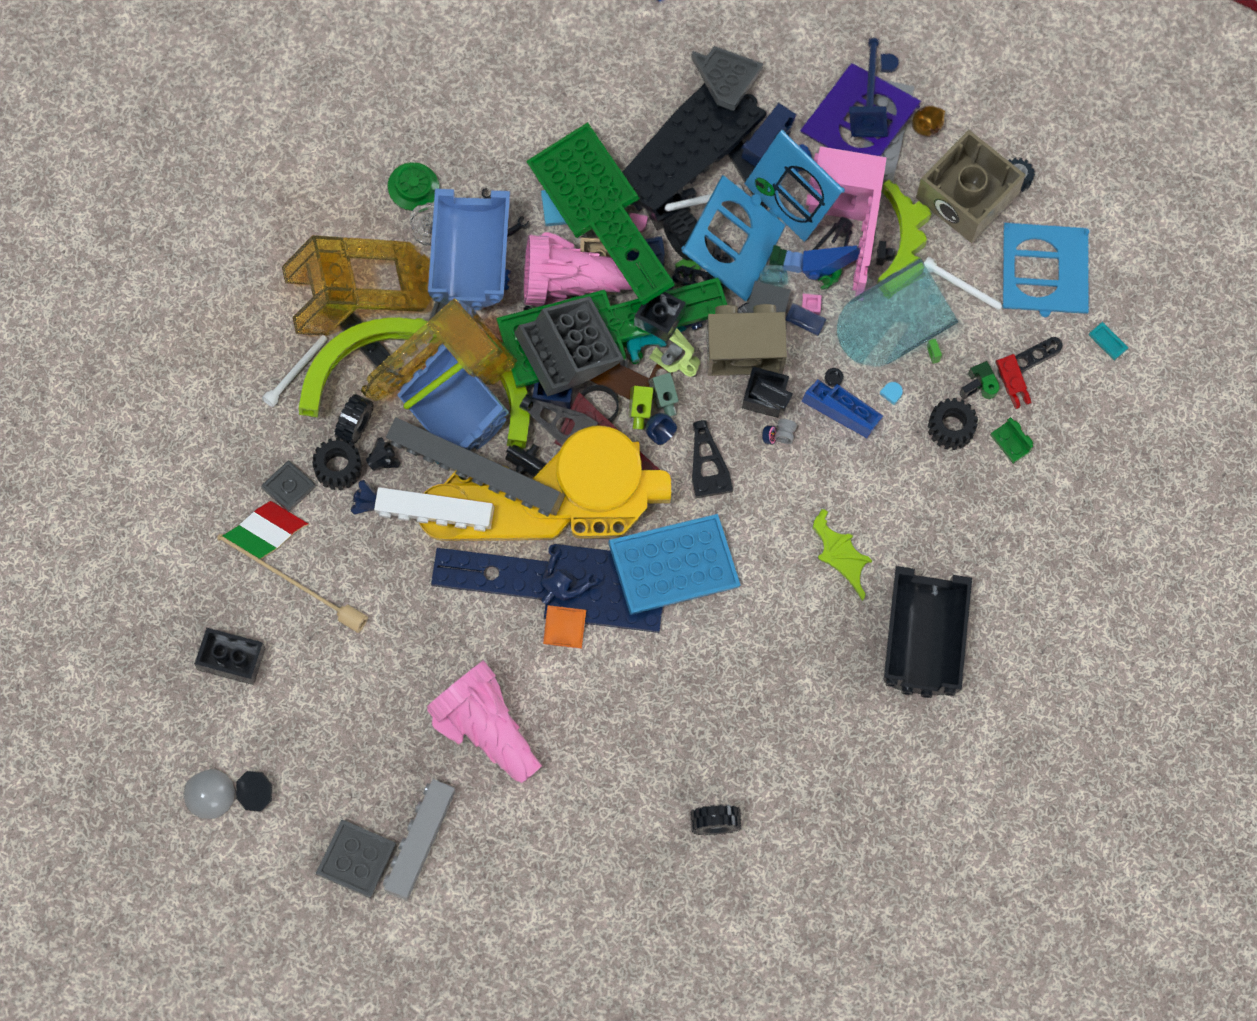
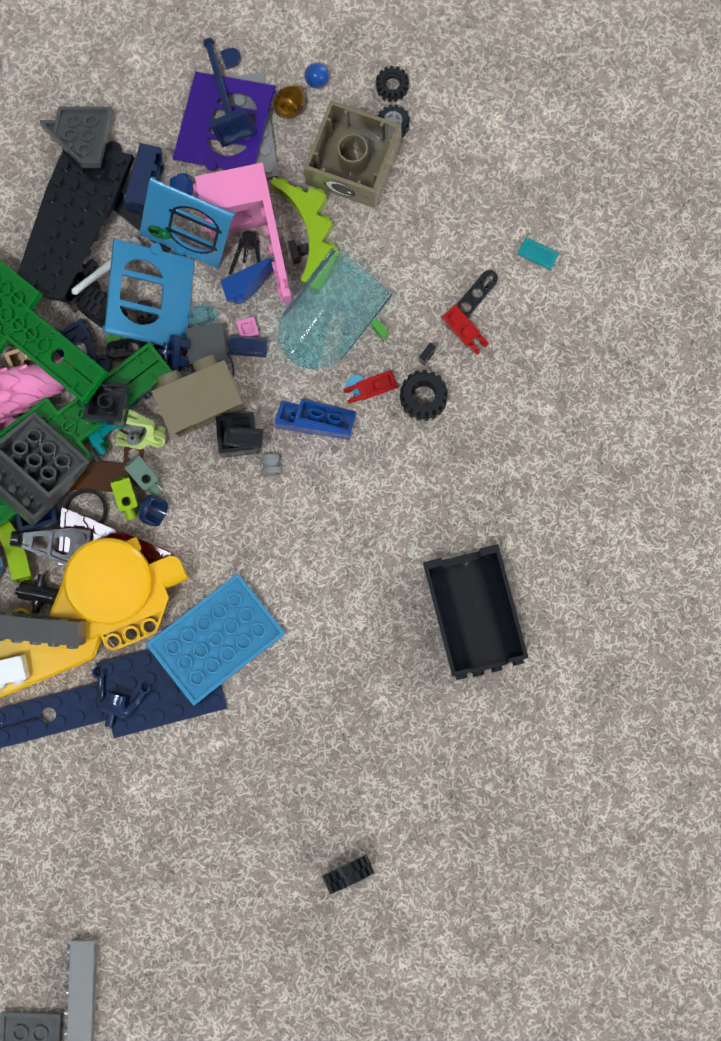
camera: 10 degrees left, 10 degrees up
(478, 710) = (87, 861): bright pink cone -> none
(564, 626) = (137, 740): orange piece -> none
(639, 220) = (53, 313): bright pink tile -> none
(712, 484) = (221, 544): black plate -> none
(736, 293) = (171, 352): none -> dark blue hips
(768, 434) = (255, 474): dark blue tile -> none
(789, 260) = (207, 294): leg -> none
(829, 281) = (255, 300): green piece -> none
(833, 376) = (295, 392): black tile -> none
(840, 553) = (366, 562): lime animal -> none
(907, 398) = (372, 386): none -> red hinge
(932, 267) = (346, 246): white piece -> none
(962, 107) = (316, 75): none -> blue piece
(986, 377) = (439, 338): leg -> none
(1012, 440) = (485, 388): green bracket -> none
(1033, 132) = (392, 73): none -> black tyre
(1072, 257) = (483, 206): dark azure door -> none

